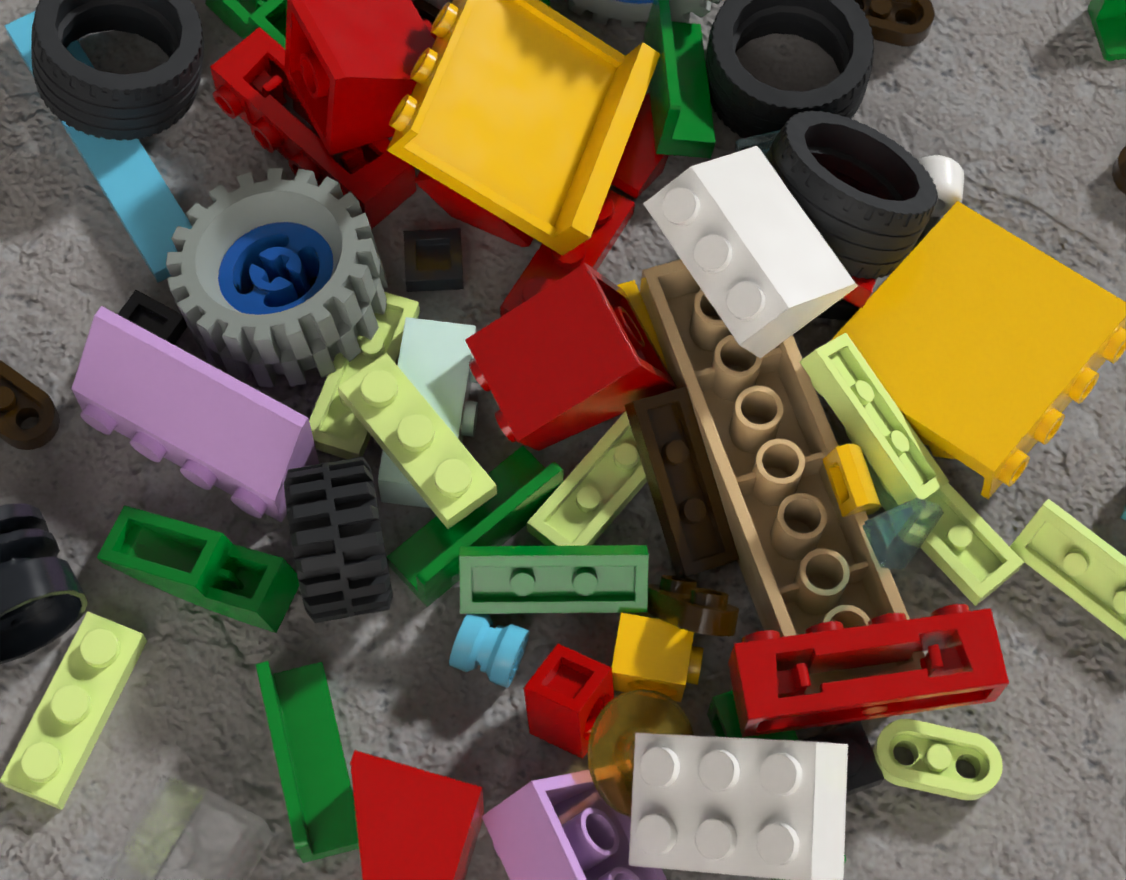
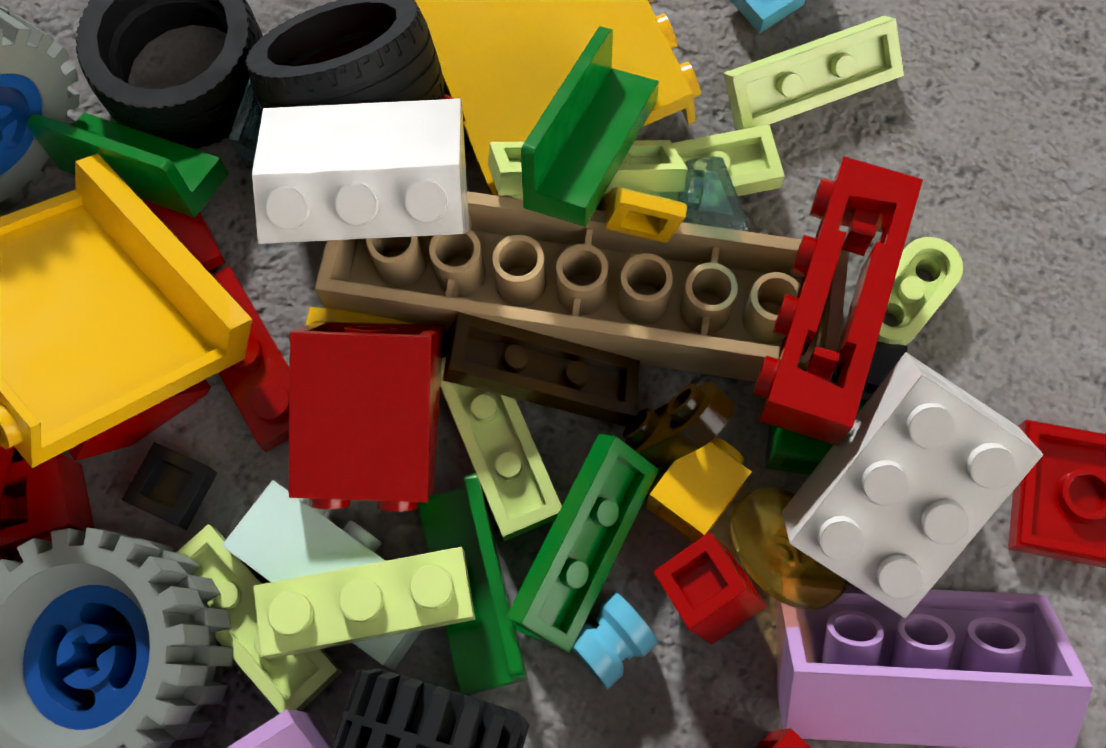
camera: 55 degrees left, 5 degrees up
(890, 394) = (584, 134): none -> green panel

